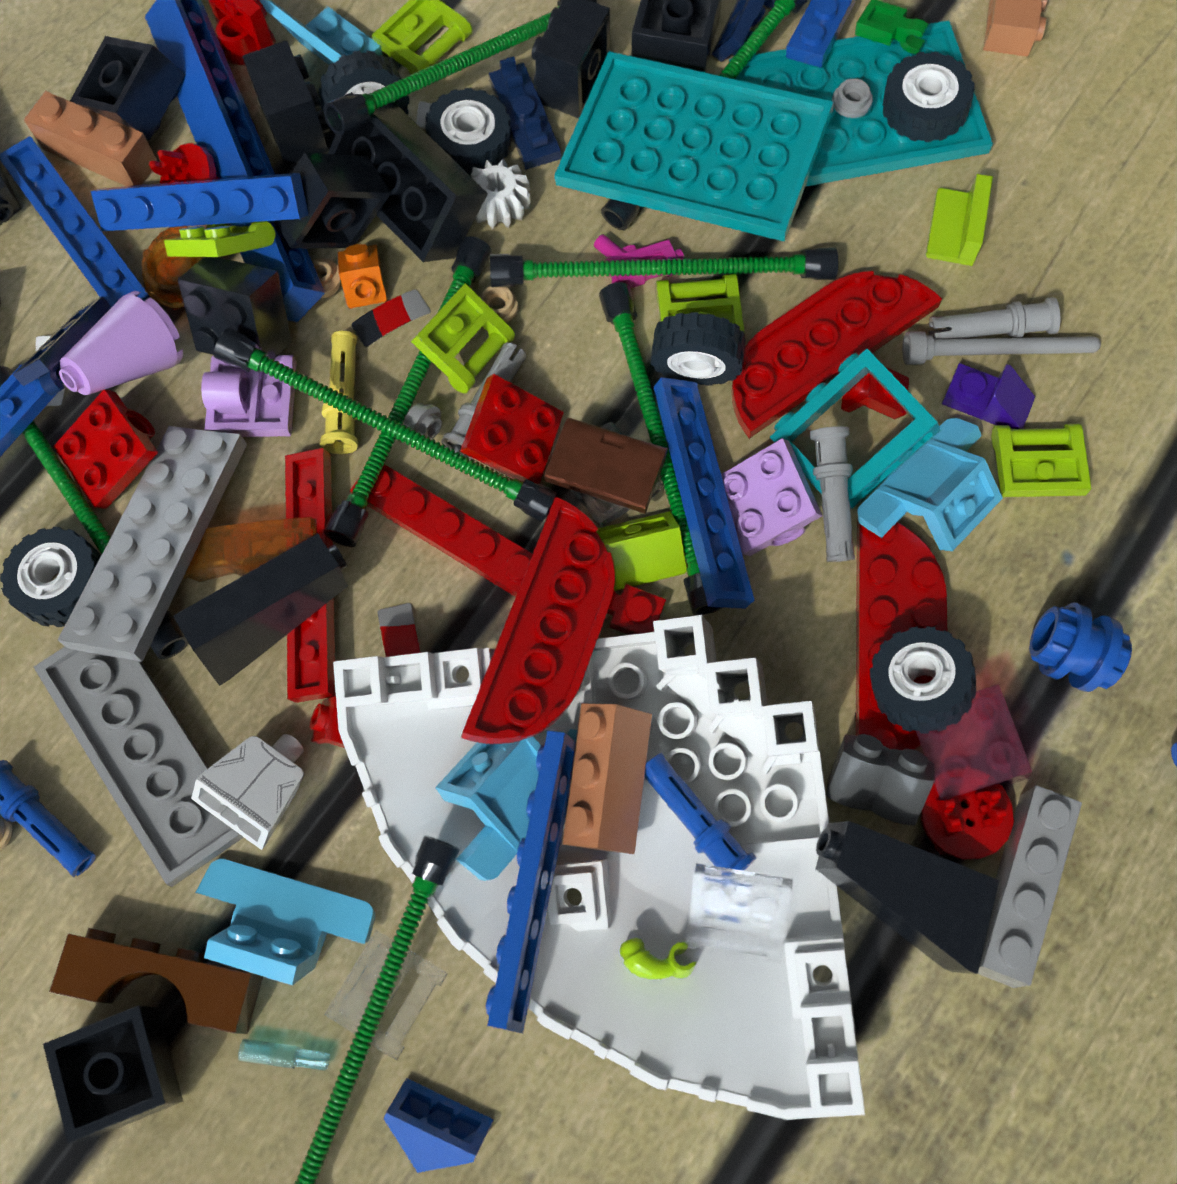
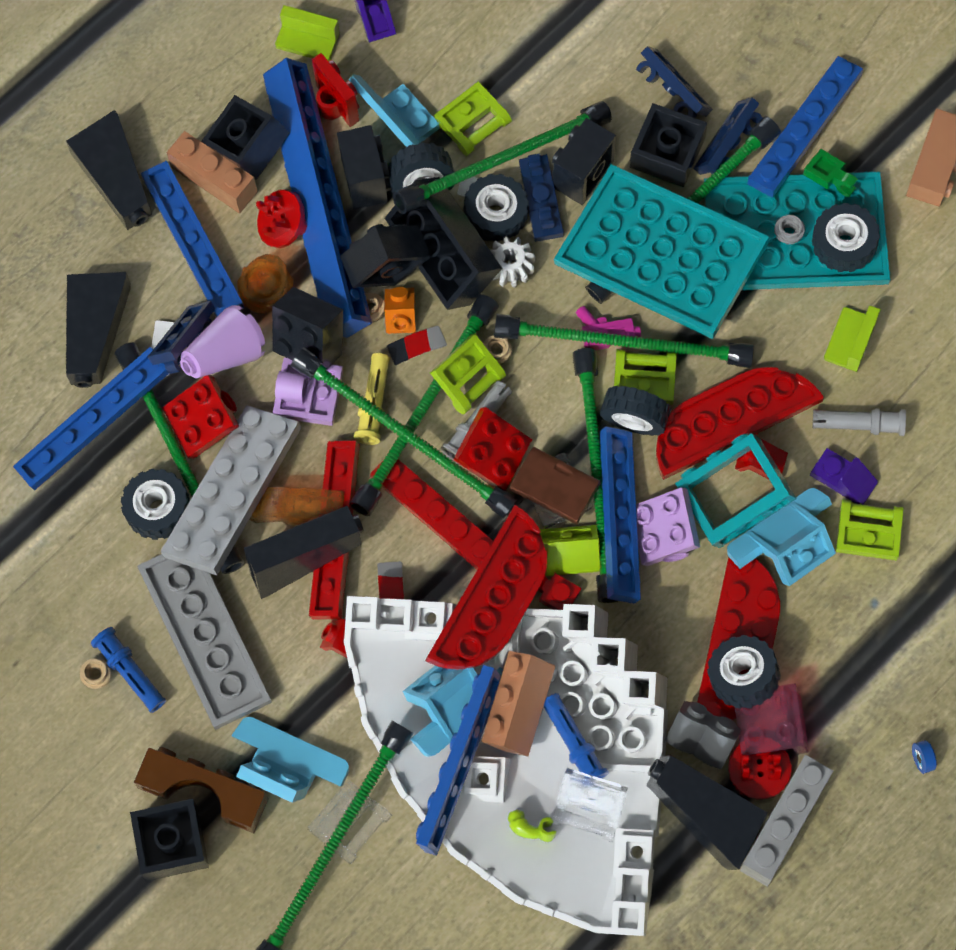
camera: 10 degrees right, 0 degrees up
(201, 202) = (291, 243): blue plate -> none
(220, 240) = (302, 275): lime plate -> none
(252, 786) = (279, 671): white torso -> none
(281, 1055) = (275, 849): clear light blue pin -> none
(424, 419) = (430, 430): light grey plate -> none
(435, 1128) = (369, 910): blue slope -> none
(832, 473) = (711, 518): light grey pin -> none
(920, 347) = (803, 431): light grey piece -> none
(1088, 649) = (861, 667): blue piece -> none

